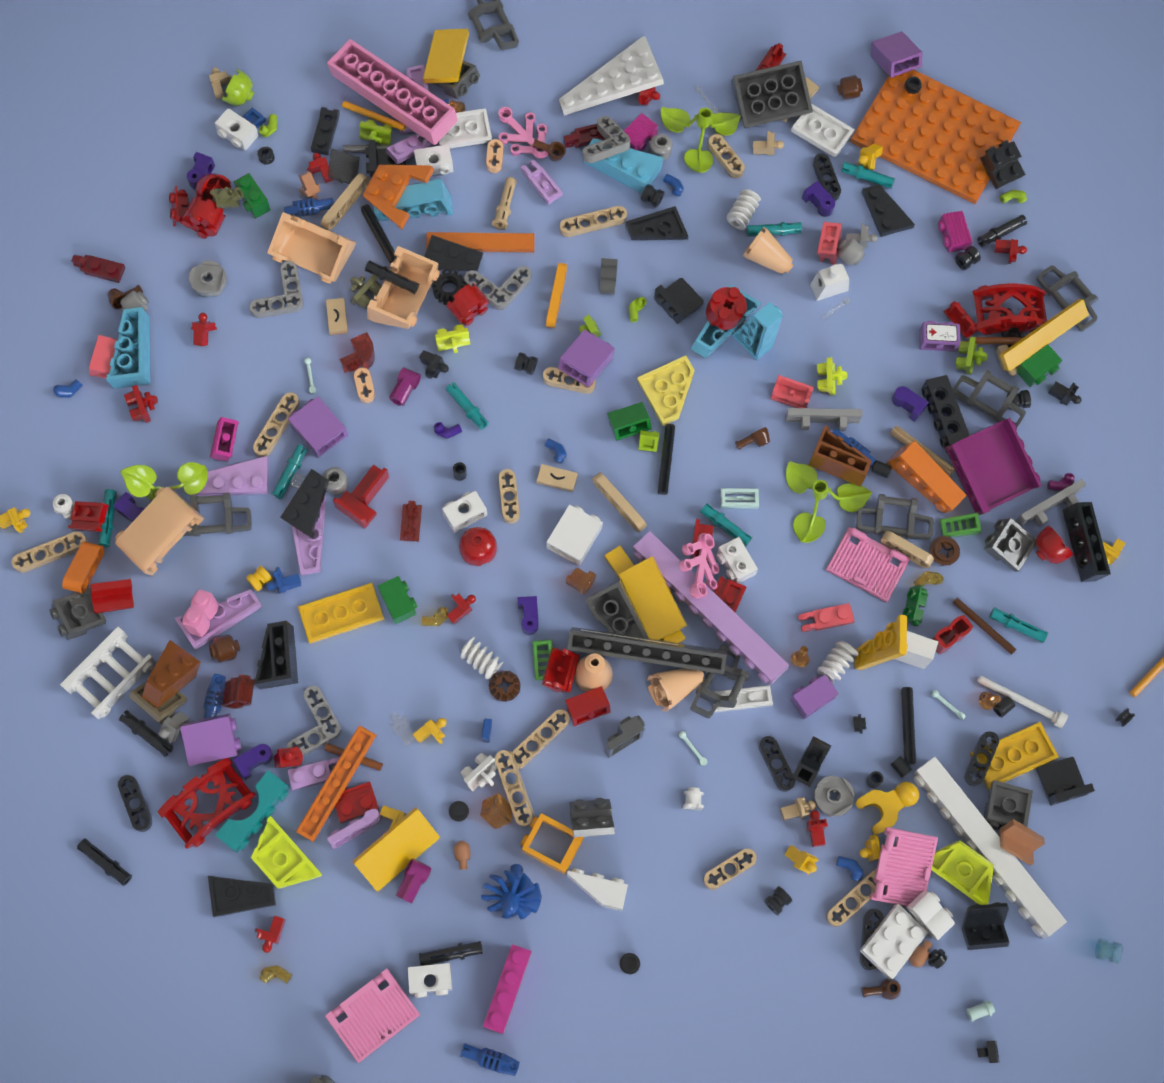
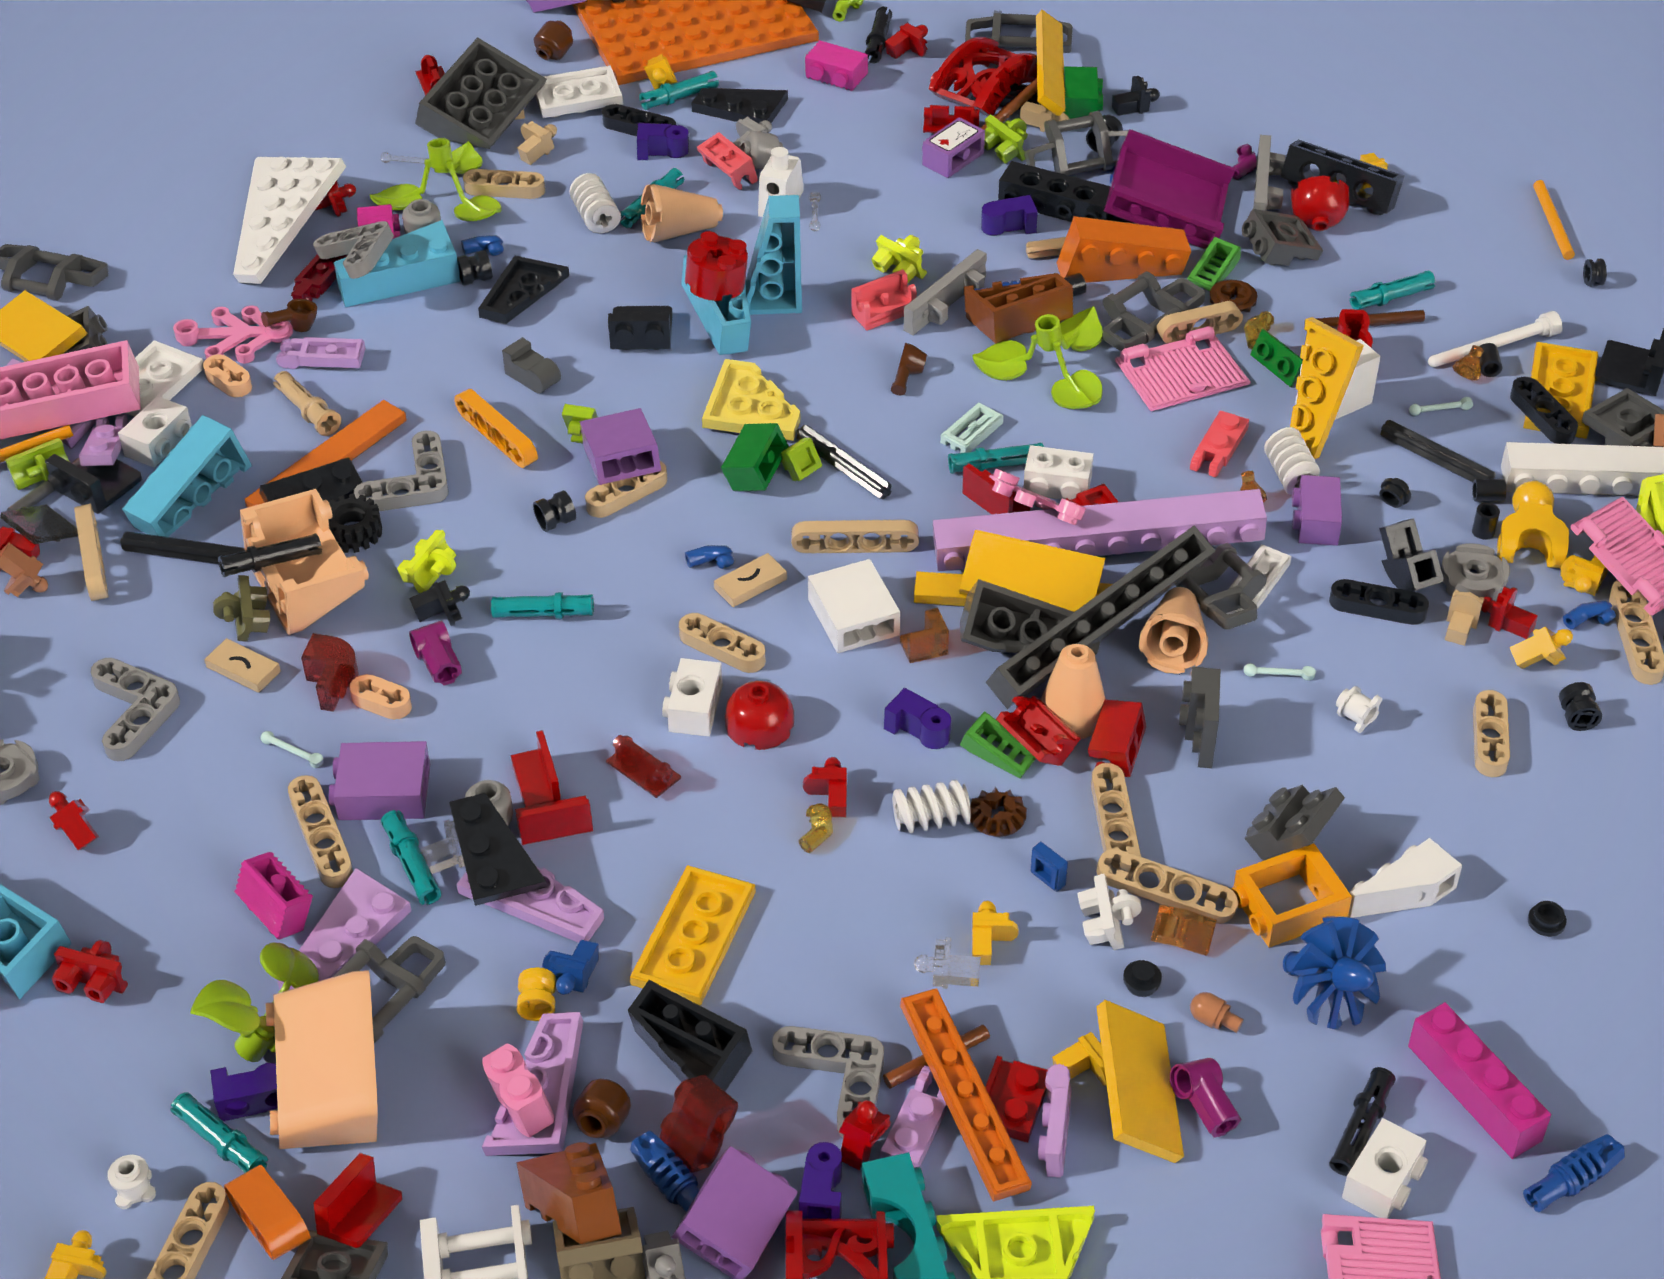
camera: 45 degrees left, 25 degrees down
(88, 516) = (190, 1151): red plate -> none
(308, 206) = (46, 593): blue hinge -> none
(310, 247) = (112, 621): light nougat windscreen -> none
(388, 186) = (137, 478): orange wing -> none
(397, 600) = (747, 846): green brick -> none
(446, 432) = (557, 650): dark purple arm -> none
(459, 466) = (629, 668): black hinge -> none
(468, 303) = (404, 509): red brick -> none
(592, 219) = (418, 372): tan beam -> none
(634, 307) = (602, 371): lime arm -> none
(966, 258) = (880, 74): black wheel -> none

